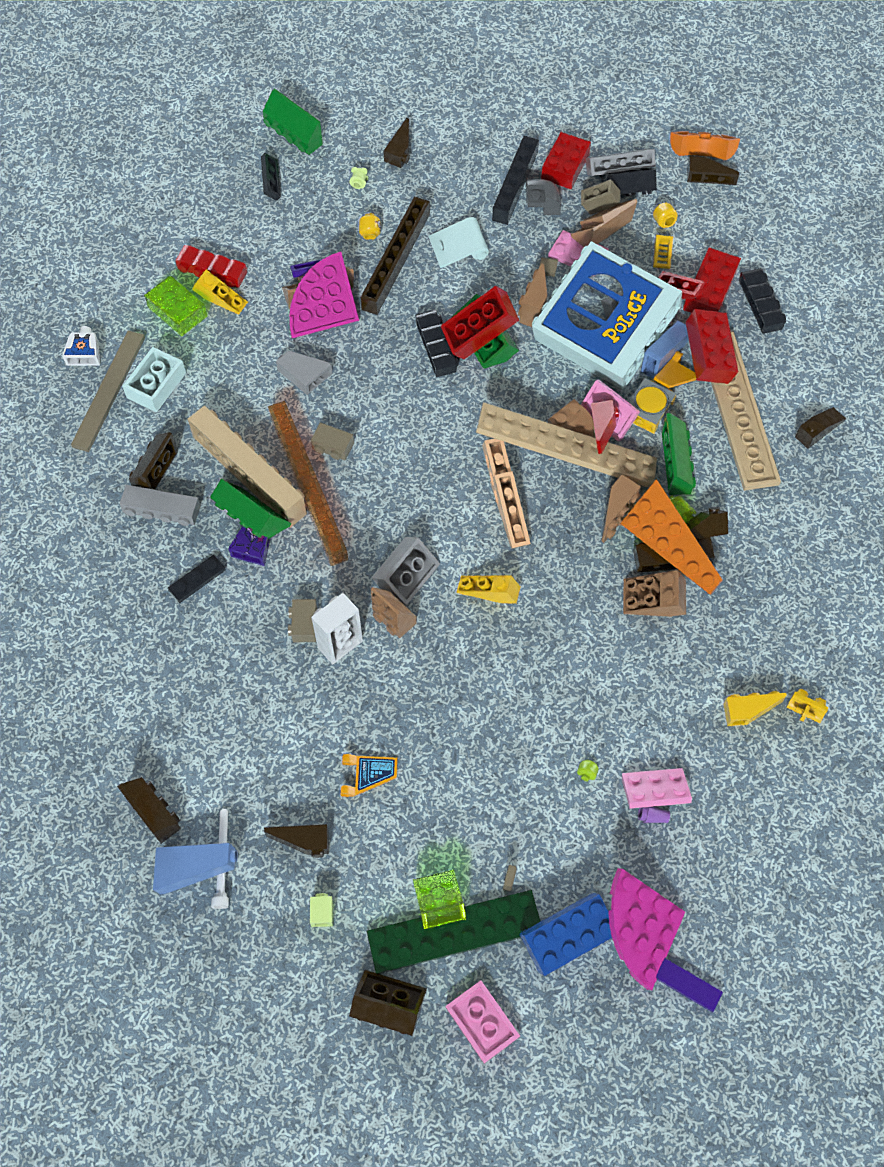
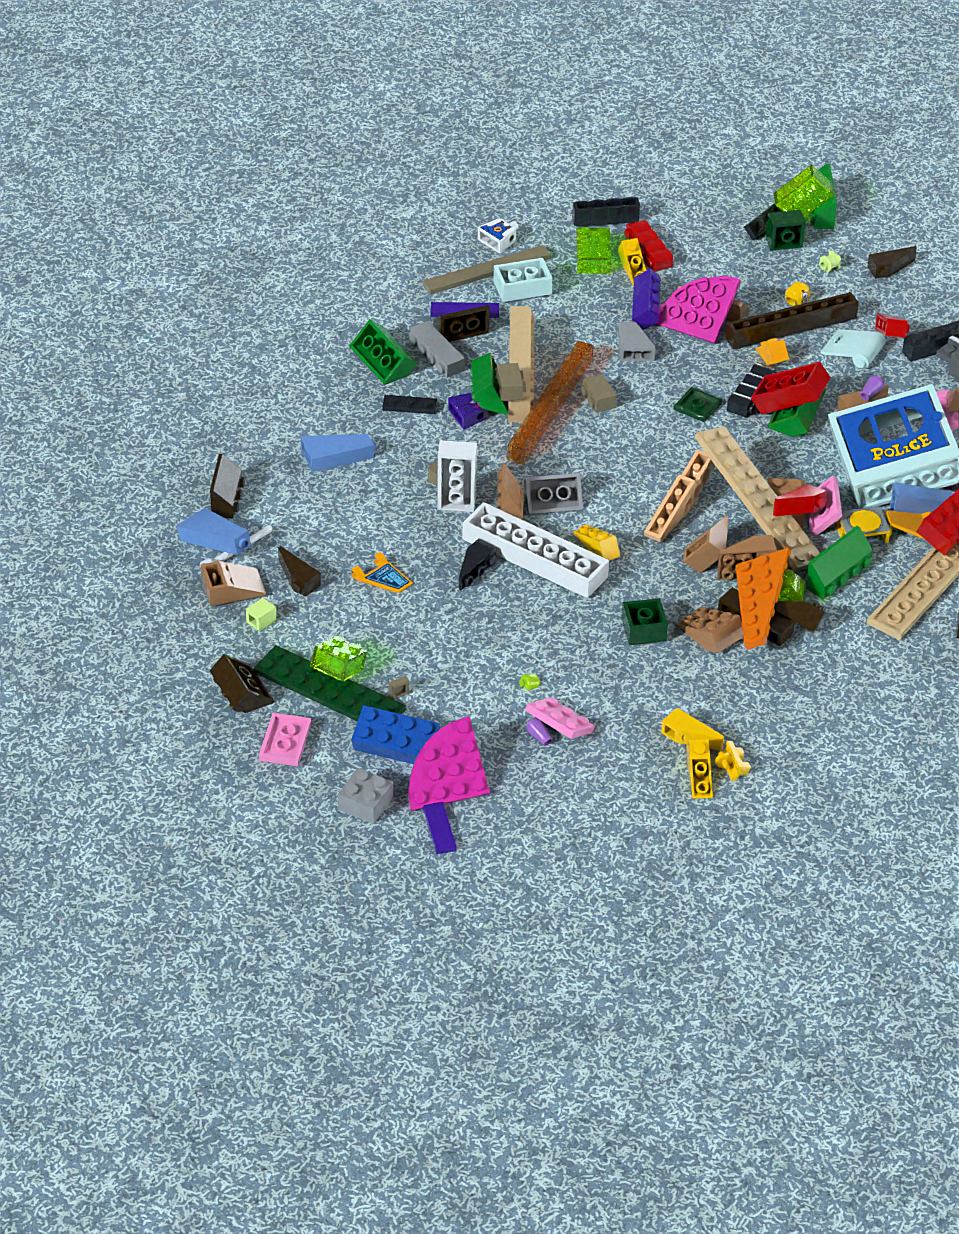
camera: 45 degrees right, 20 degrees down
(120, 547) = (382, 353): none -> green slope
(134, 445) = (443, 308): none -> dark purple tile
(145, 260) = (605, 211): none -> black brick
(190, 684) = (336, 450): none -> medium blue slope
(262, 902) = (230, 582): none -> medium nougat slope
(269, 320) = (646, 298): none -> dark purple brick
(278, 498) = (510, 382): none -> dark tan brick
(284, 131) = (804, 192): none -> clear neon green brick
(301, 174) = (785, 230): none -> dark green brick
(410, 389) = (697, 404): none -> dark green tile
(413, 295) = (773, 351): none -> light orange slope
(423, 691) = (476, 560): none -> black slope
(459, 640) = (537, 550): none -> white brick
(473, 205) = (891, 325): none -> red slope
(540, 276) = (872, 387): none -> medium lavender cone
(574, 518) = (706, 547): none -> medium nougat slope
(609, 1016) = (365, 795): none -> light grey brick
(611, 635) = (644, 621): none -> dark green brick
(795, 736) = (699, 768): none -> yellow slope

